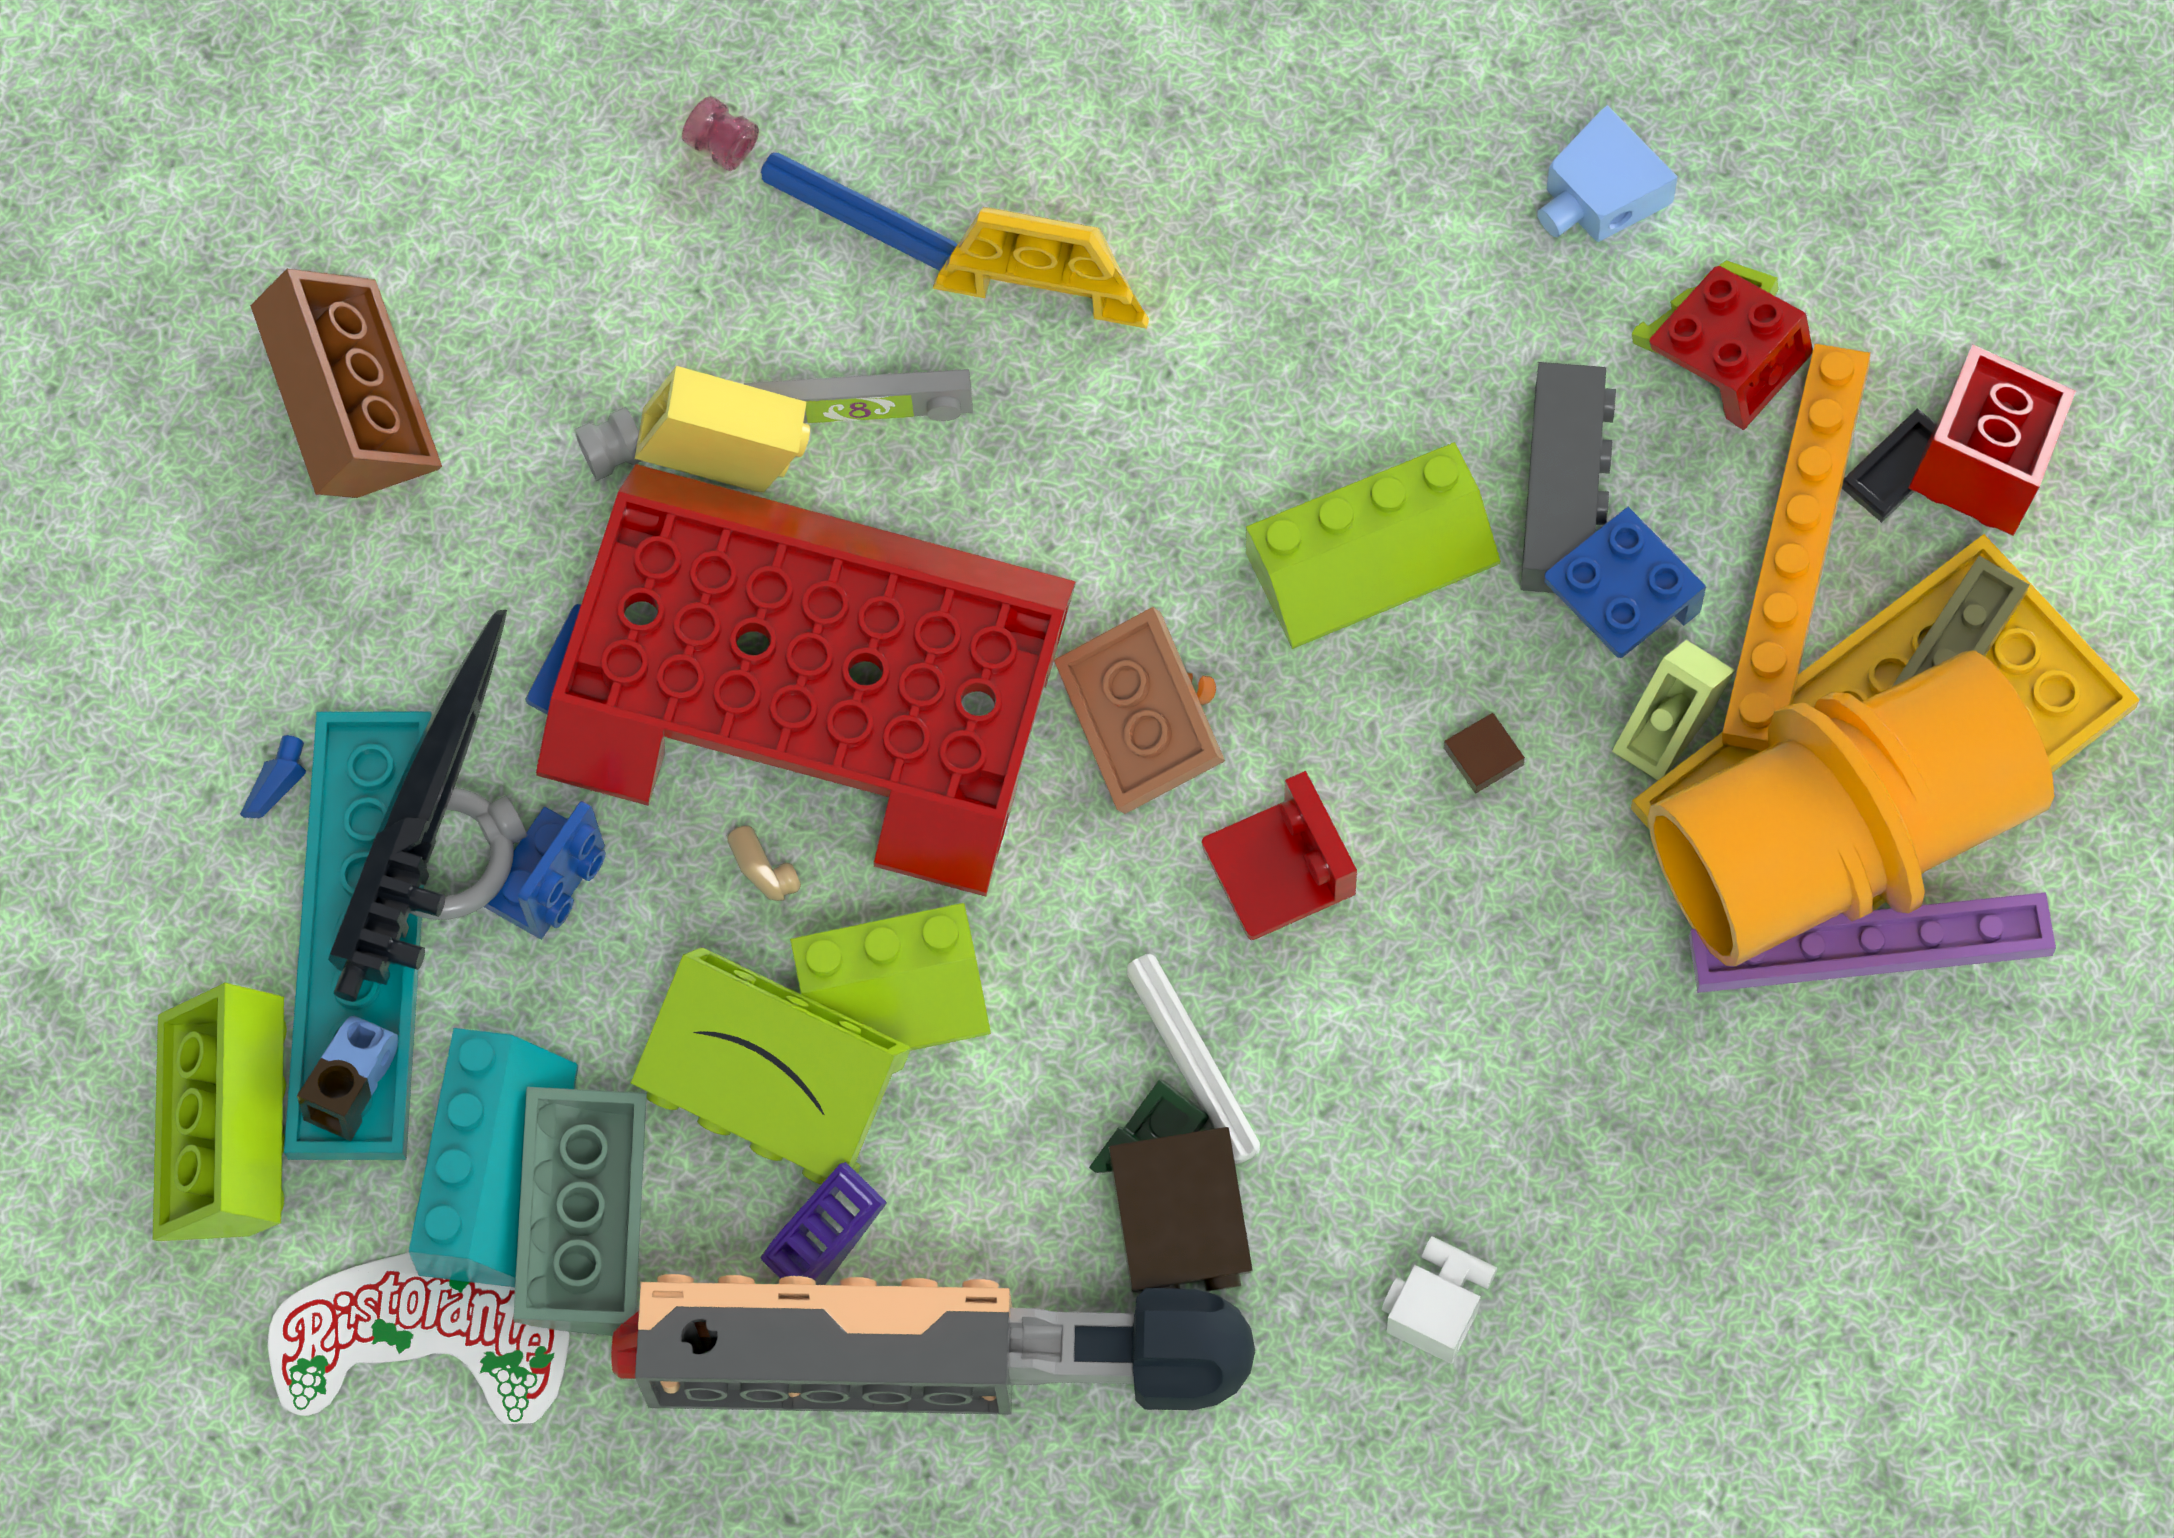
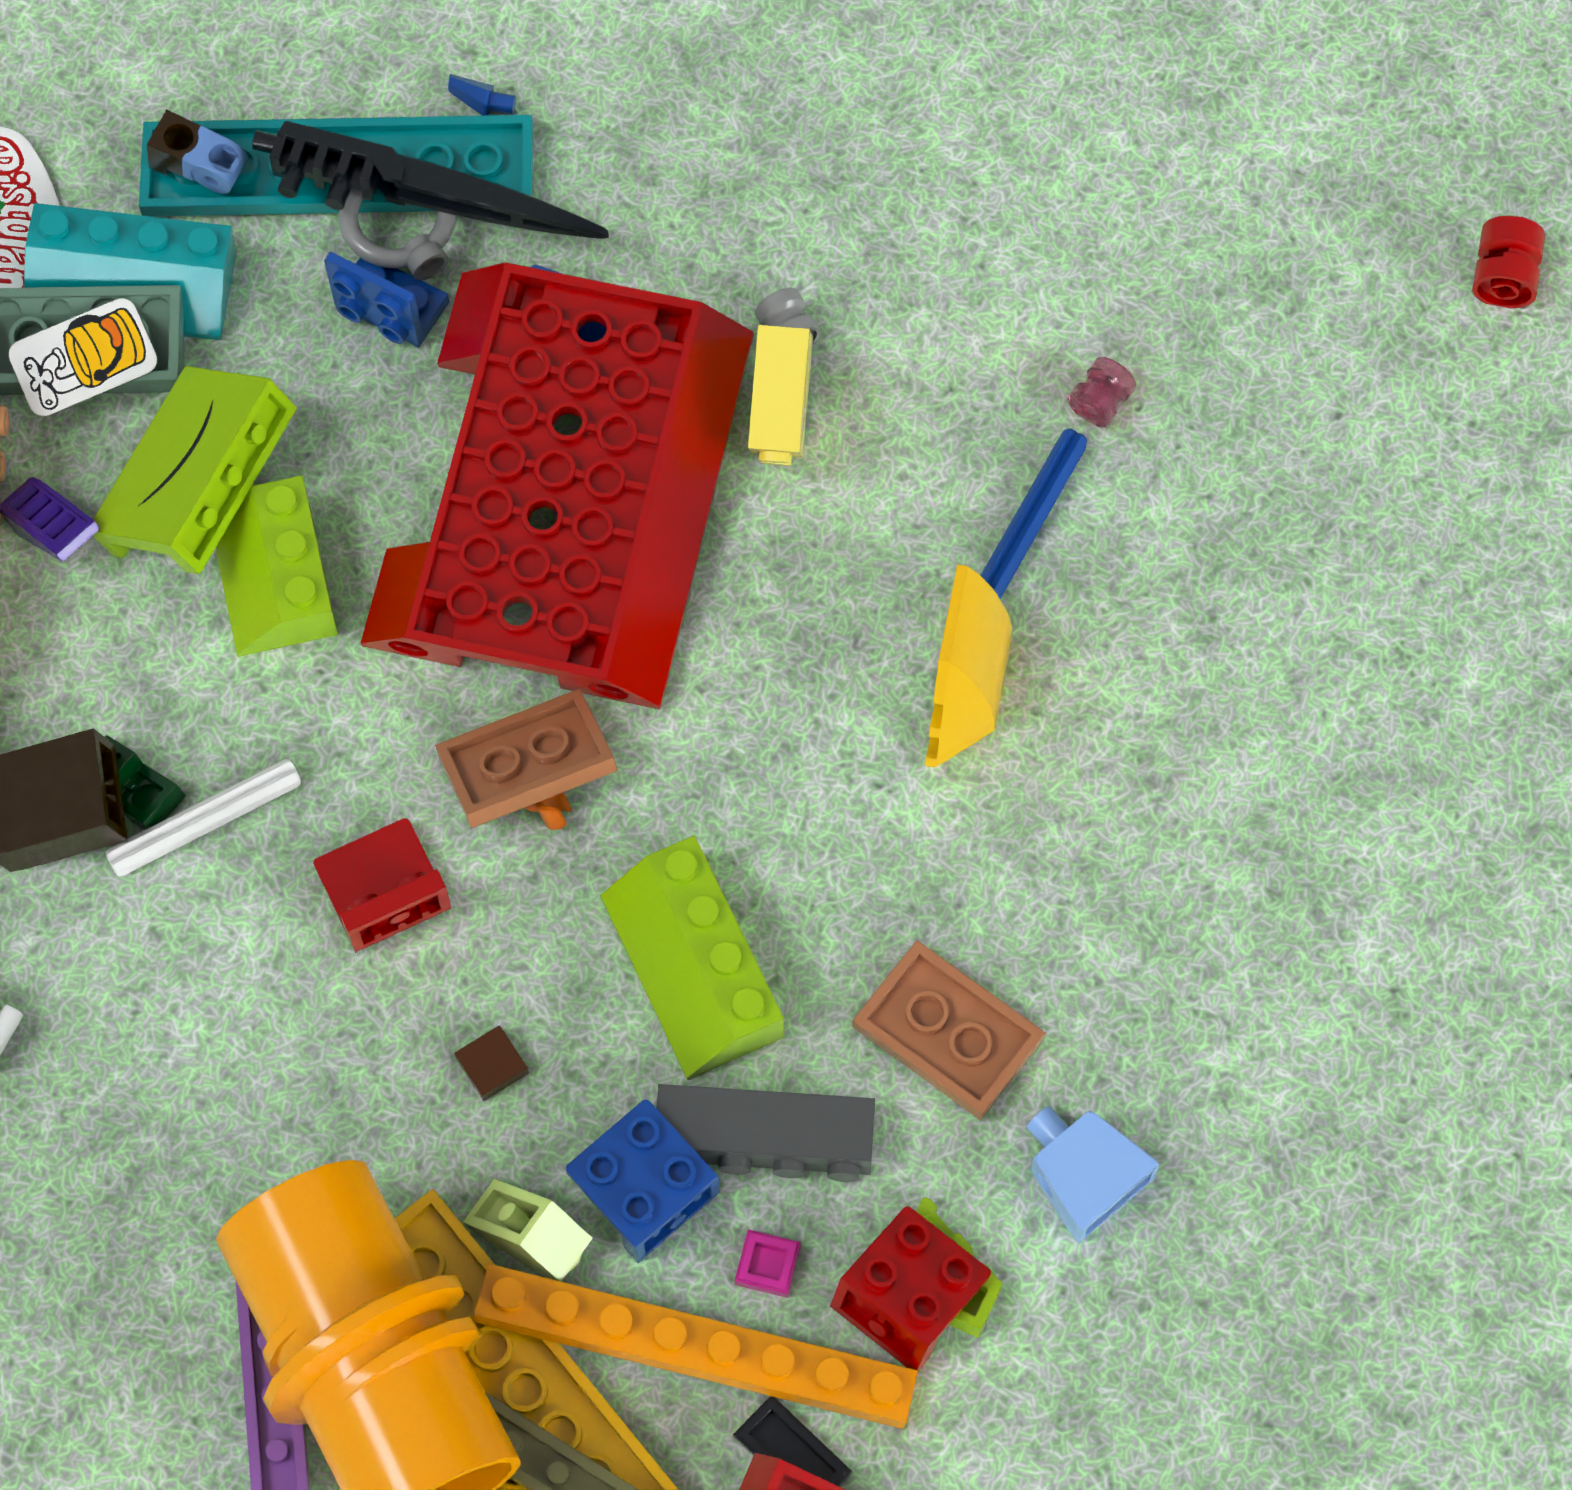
camera: 85 degrees right, 0 degrees up
(219, 1115) = (177, 74): lime slope -> none
(344, 383) = (842, 115): dark orange slope -> none
(611, 1199) = (82, 357): none -> sticker
(755, 865) = (385, 461): tan arm -> none
(884, 396) = (837, 585): light grey plate -> none
(1451, 306) = (948, 1030): none -> nougat plate
(1701, 485) = (767, 1263): none -> dark pink tile

